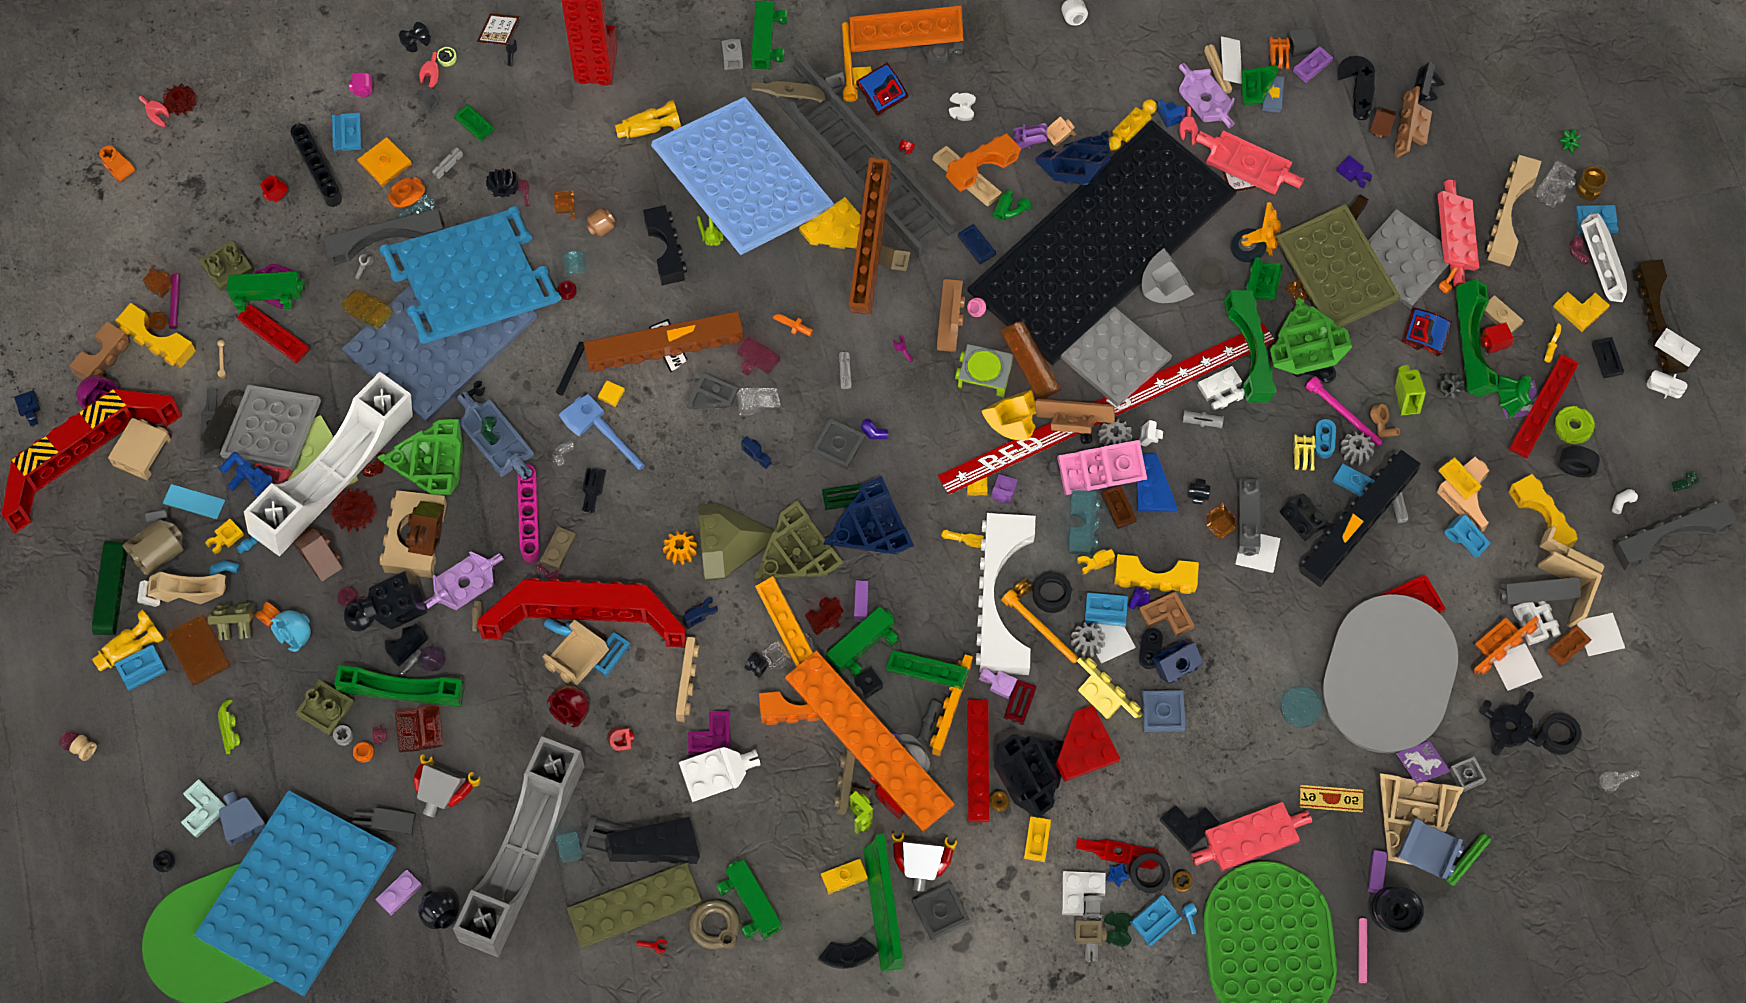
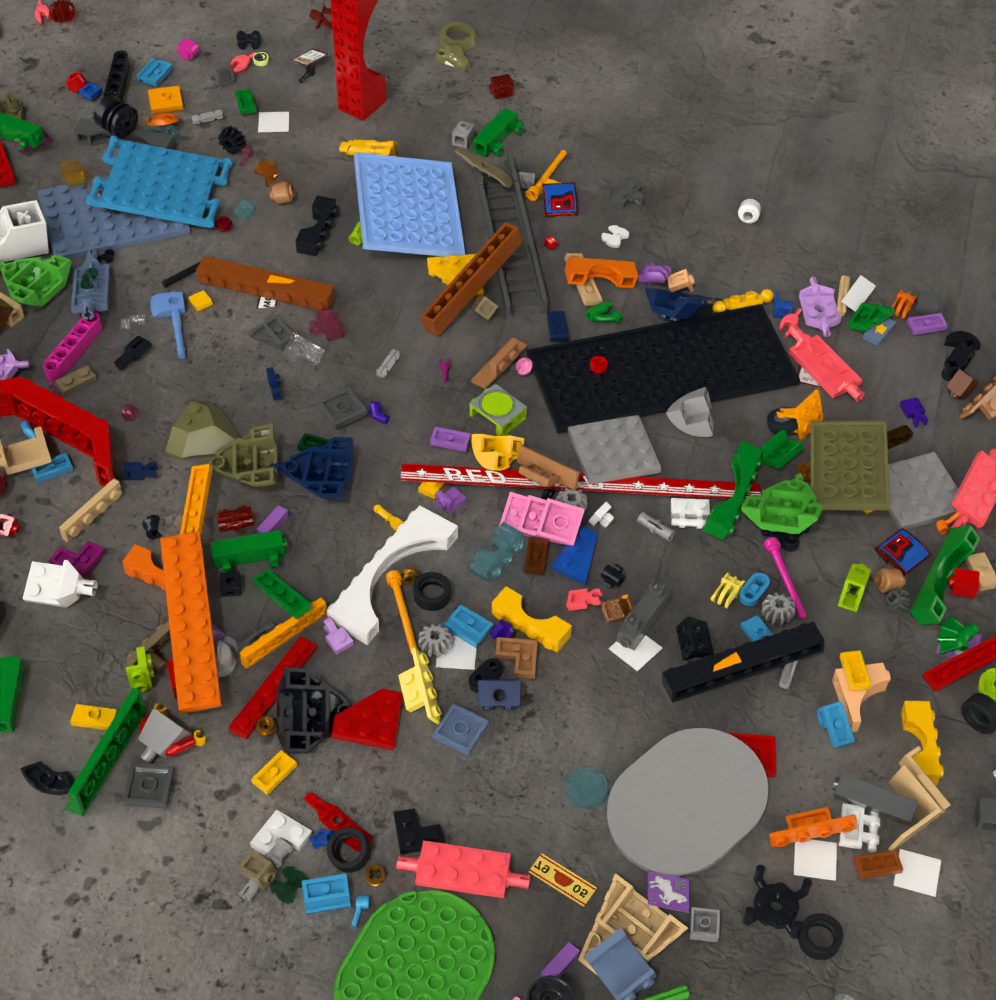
camera: 30 degrees right, 15 degrees down
(297, 192) = (90, 91): none -> blue plate
(362, 259) = (99, 147): light grey hand -> none
(376, 221) = (116, 116): none -> black wheel
(519, 132) = (273, 122): none -> white sticker
(640, 557) = (129, 412): none -> clear pink plate
(680, 540) = (162, 419): light orange gear -> none
(796, 326) = (373, 318): orange piece -> none
(906, 29) = (606, 169): orange plate -> none
(961, 424) = (450, 439): none -> medium lavender plate
(1015, 718) = (345, 663): dark red tile -> none
(1031, 360) = (538, 417): clear orange brick -> none
(1046, 270) = (598, 364): none -> red tile
(1099, 560) = (489, 586): yellow plate -> none
(1185, 529) = (581, 598): none -> coral plate
(1380, 416) = (816, 594): medium nougat plate -> none
(1433, 368) = (889, 579): none -> medium nougat head

